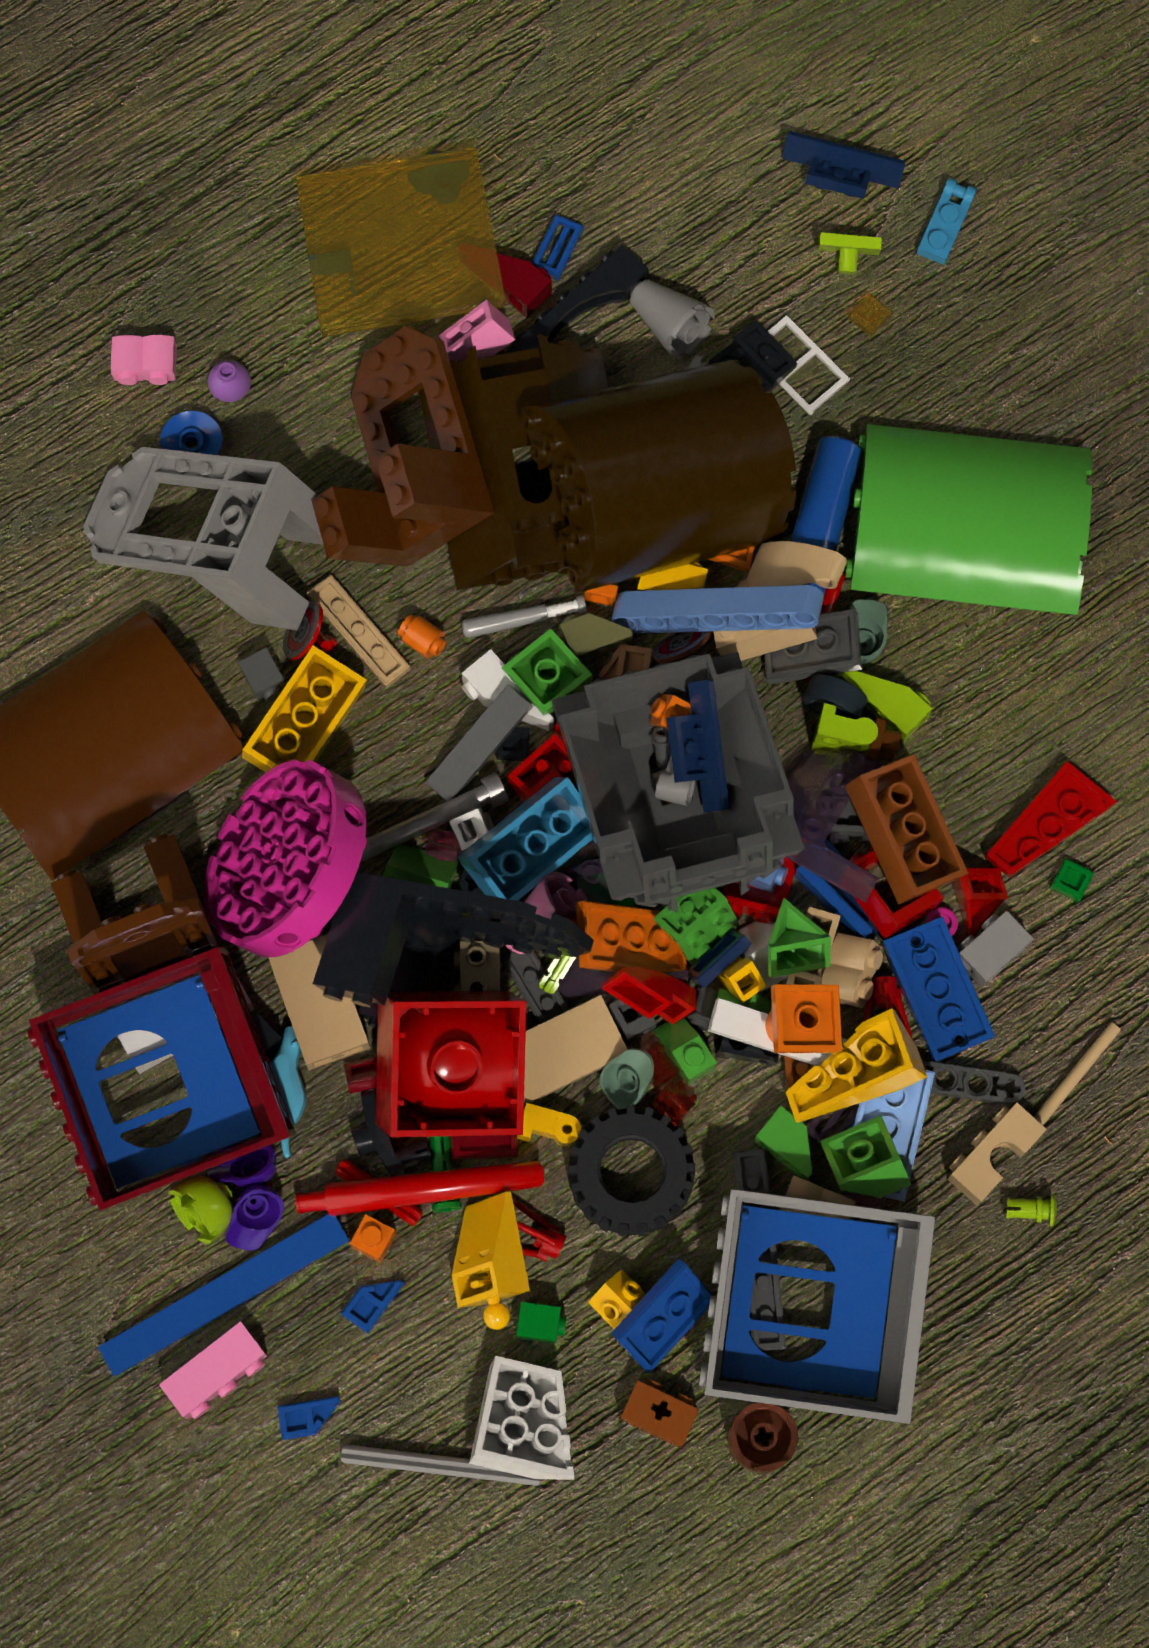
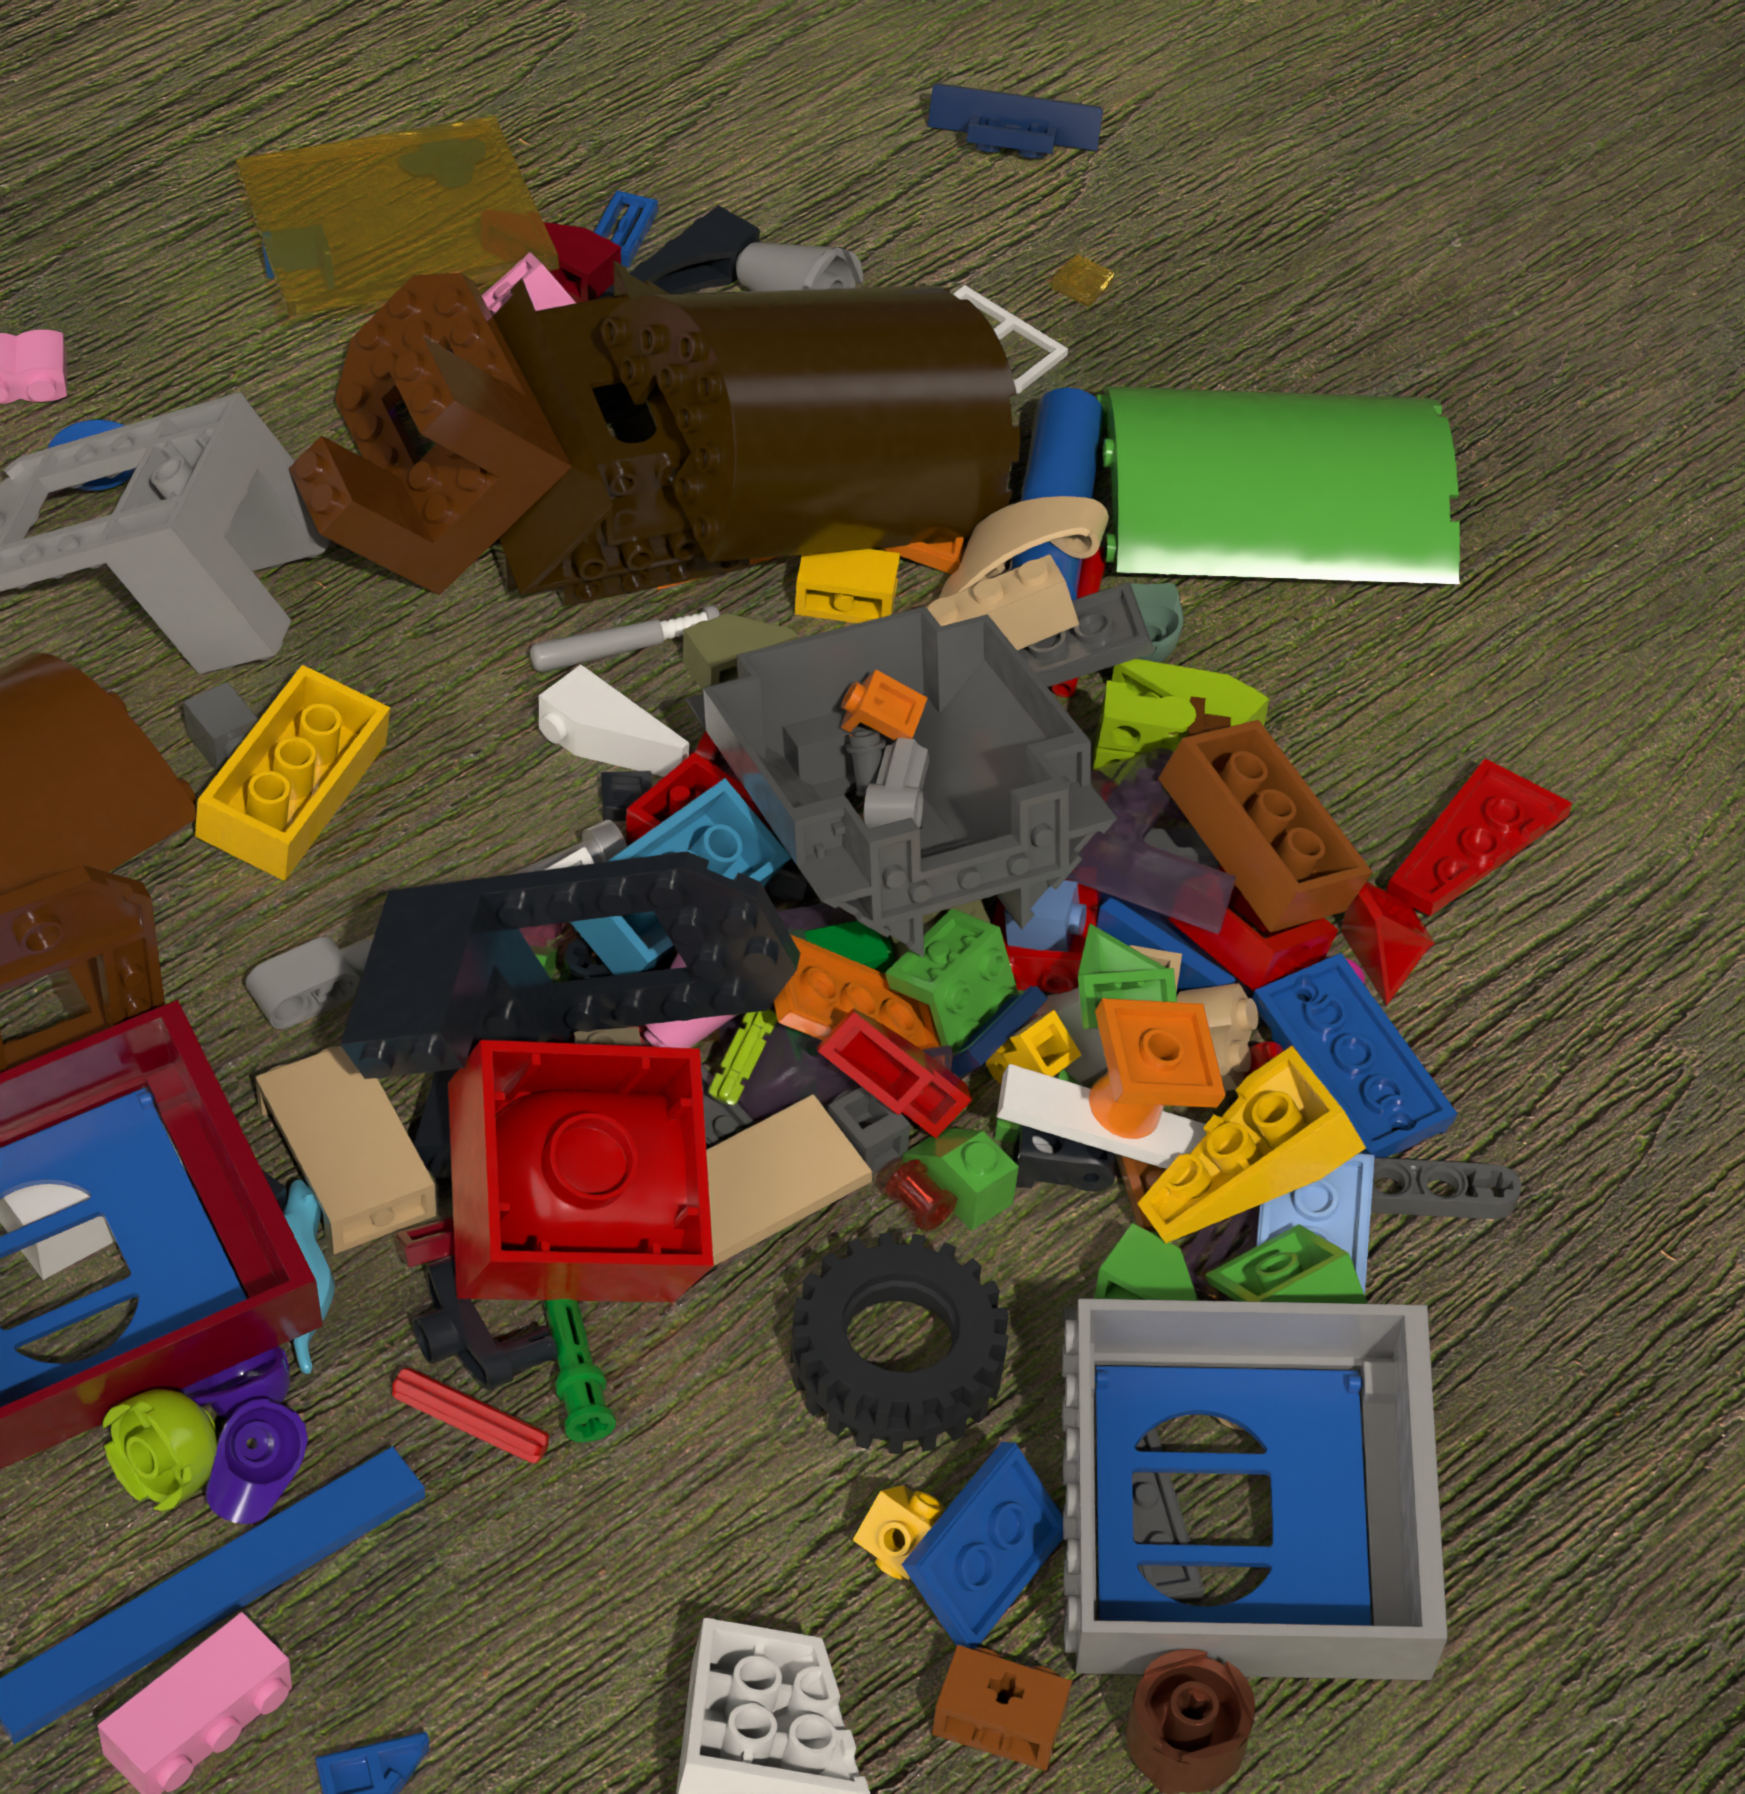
camera: 10 degrees left, 25 degrees down
(229, 380) = (148, 388): medium lavender brick -> none
(285, 858) = (285, 925): dark pink brick -> none
(299, 641) = (280, 668): shield -> none
(359, 631) = (370, 671): tan tile -> none
(370, 1304) = (470, 1587): blue tile -> none
(373, 1239) = (467, 1477): orange brick -> none
(420, 1188) = (539, 1381): red animal -> none
(422, 636) = (470, 667): orange brick -> none
(479, 743) = (576, 783): dark grey tile -> none
(483, 1147) = (642, 1324): dark red tile -> none
(489, 1259) = (677, 1483): yellow slope -> none
(540, 1323) = (773, 1583): green brick -> none
(547, 671) = (663, 676): bright green slope -> none
(547, 1240) = (770, 1460): red plant -> none
(550, 1124) = (749, 1292): yellow leg -> none
(603, 595) = (741, 596): orange tile -> none
(627, 1077) = (876, 1184): sand green cap -> none
(674, 1102) = (957, 1231): clear red tile -> none
(698, 746) = (927, 735): dark blue bracket -> none
(705, 1001) = (983, 1109): dark grey pin -> none
(719, 609) = (940, 568): medium blue beam -> none
(836, 692) = (1090, 685): black wheel -> none
(849, 248) = (1041, 204): lime tile -> none
(946, 222) = (1171, 178): dark azure plate -> none
(994, 947) = (1432, 997): light grey brick -> none
(1014, 1130) = (1513, 1243): tan arch -> none
(1033, 1209) = (1572, 1350): lime pin -> none
(1072, 880) = (1527, 913): green tile -> none
(1077, 1073) = (1593, 1168): tan bar -> none

